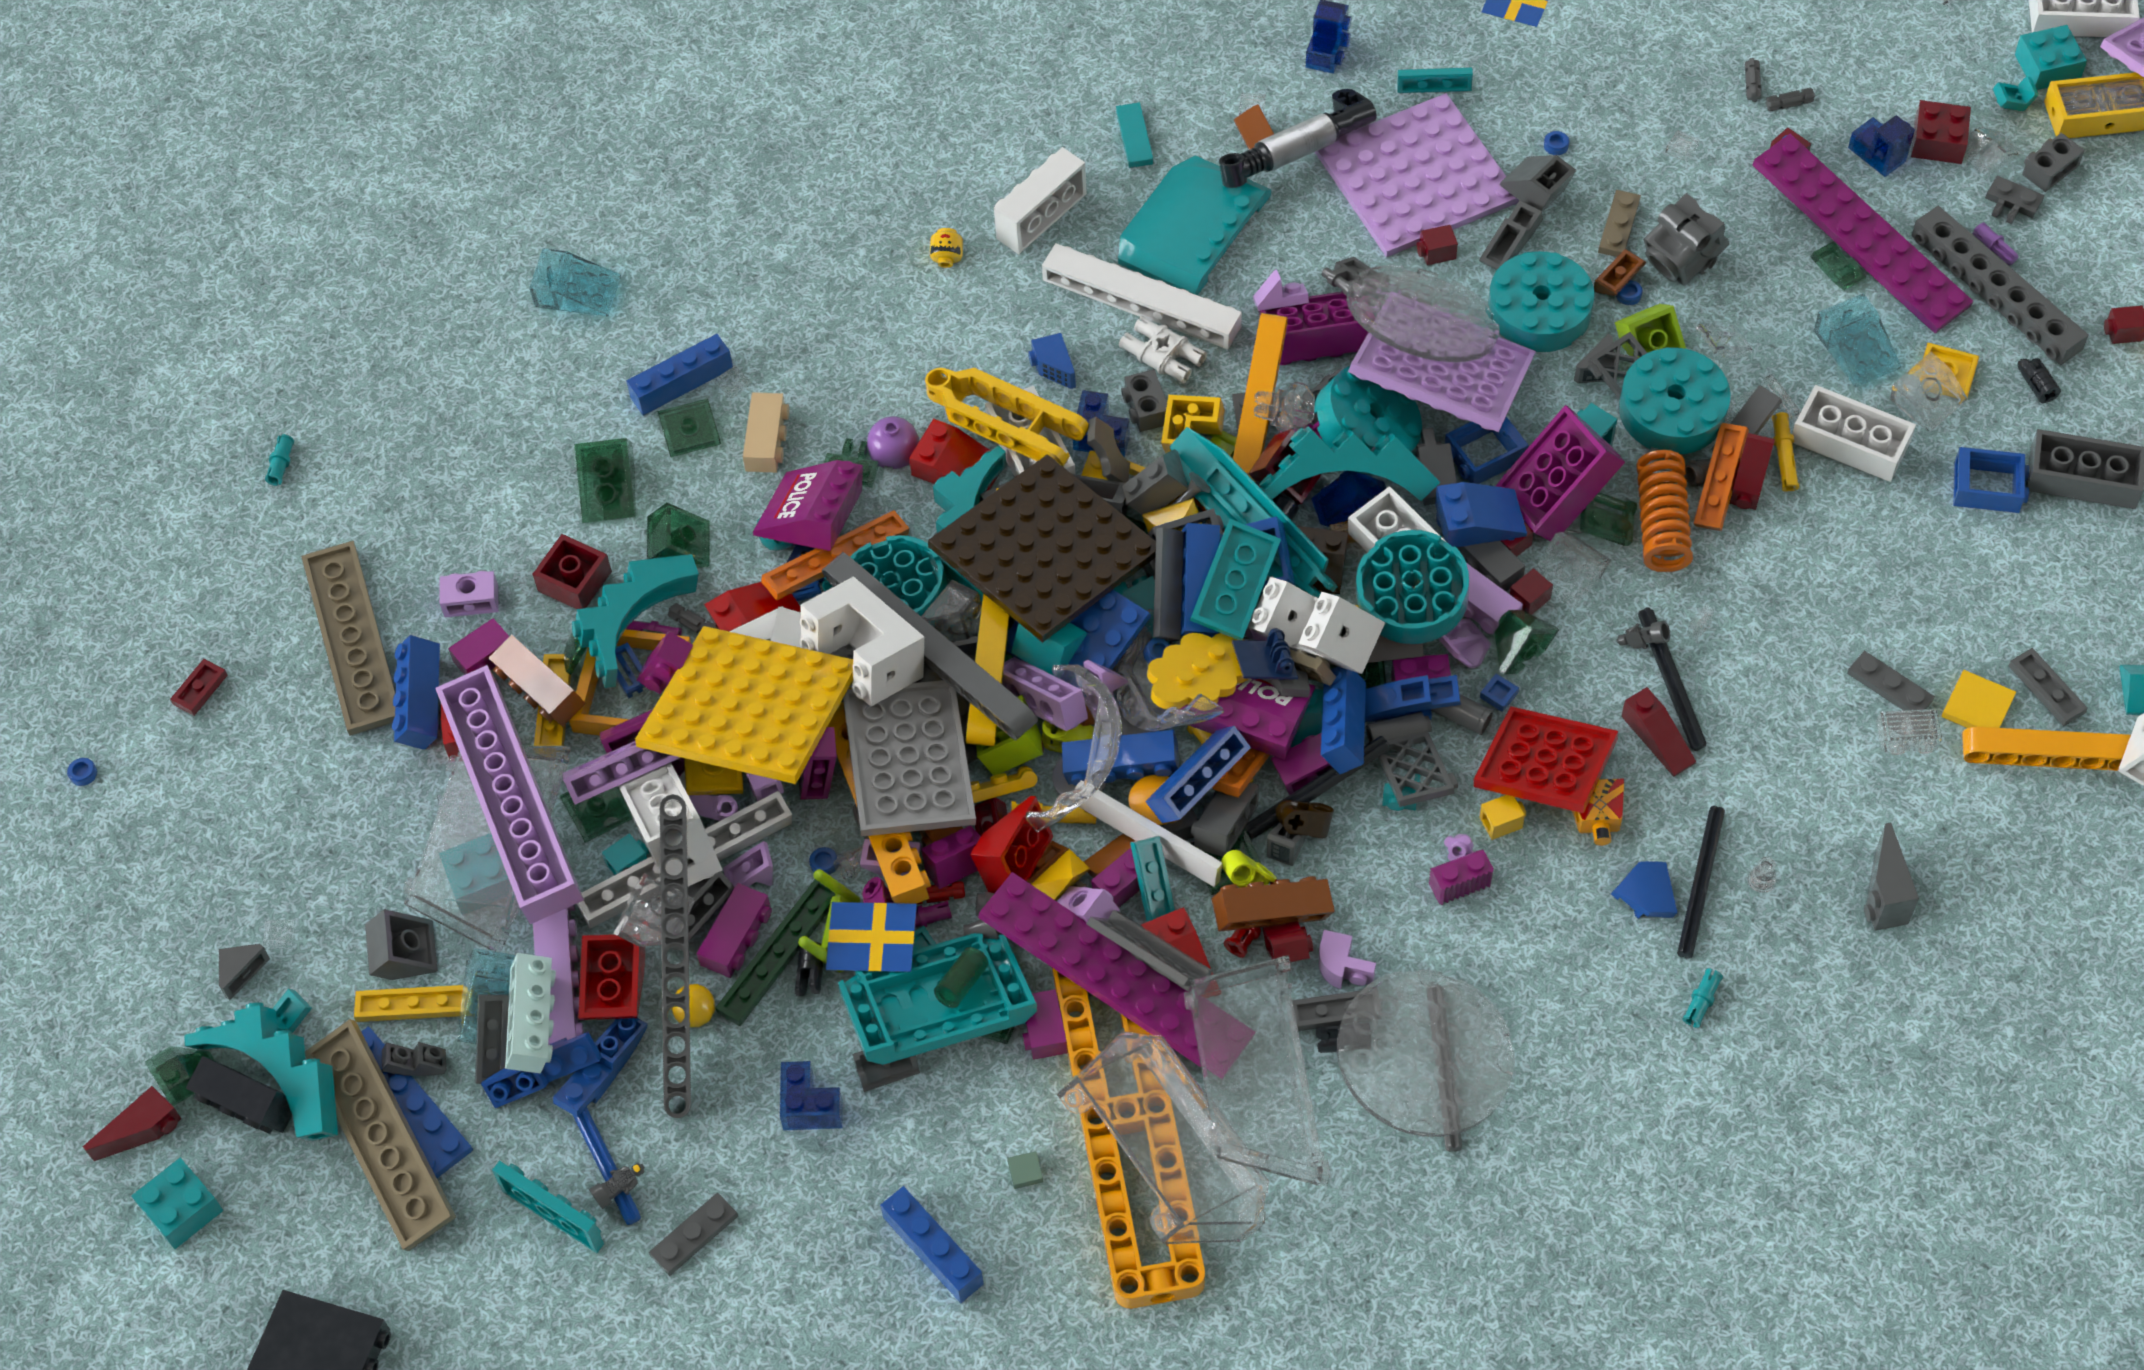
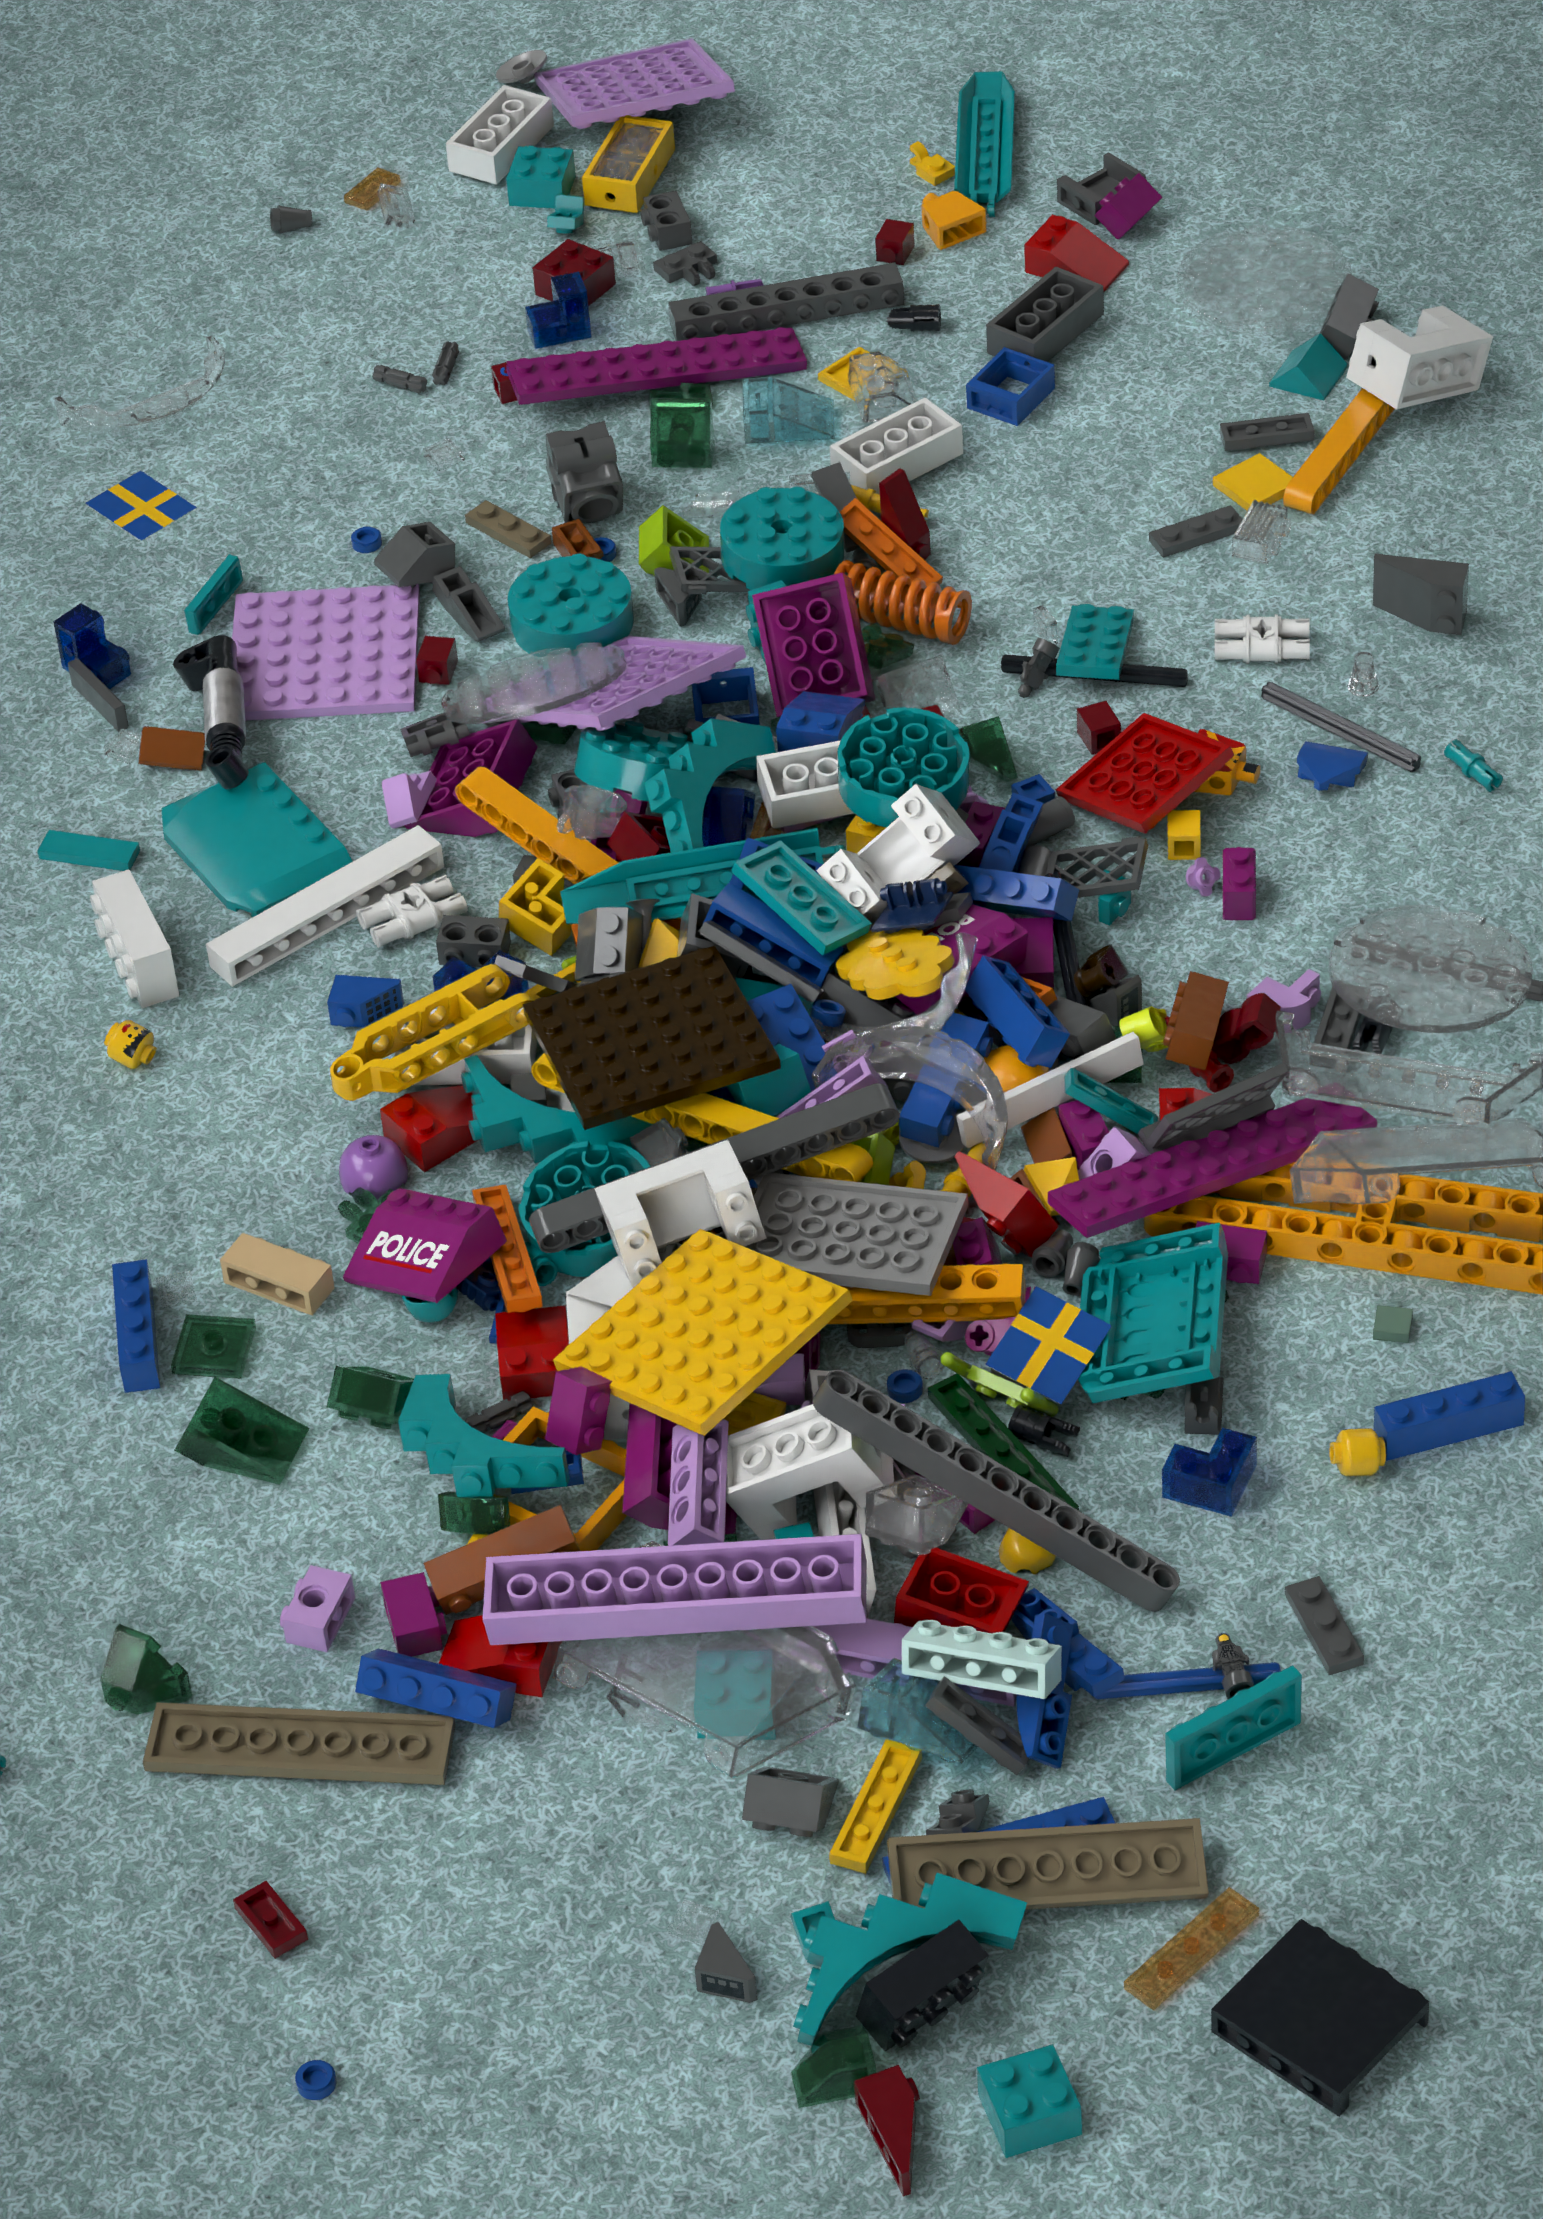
camera: 65 degrees left, 15 degrees down
(356, 1258) = (1191, 1948): none -> clear orange tile
(368, 520) = (139, 1676): none -> clear green slope
(572, 572) = (361, 1495): dark red brick -> none
(868, 1192) = (1358, 1452): none -> yellow head
(961, 977) = (1146, 1282): clear green pin -> none
(1289, 65) = (98, 695): none -> dark grey tile
(1599, 706) = (1097, 725): none -> dark red brick
(1658, 731) = (1139, 693): dark red slope -> none
(1699, 664) = (1095, 642): none -> teal plate
(1770, 793) = (1262, 639): none -> white pin
(1781, 284) = (681, 433): none -> clear green slope

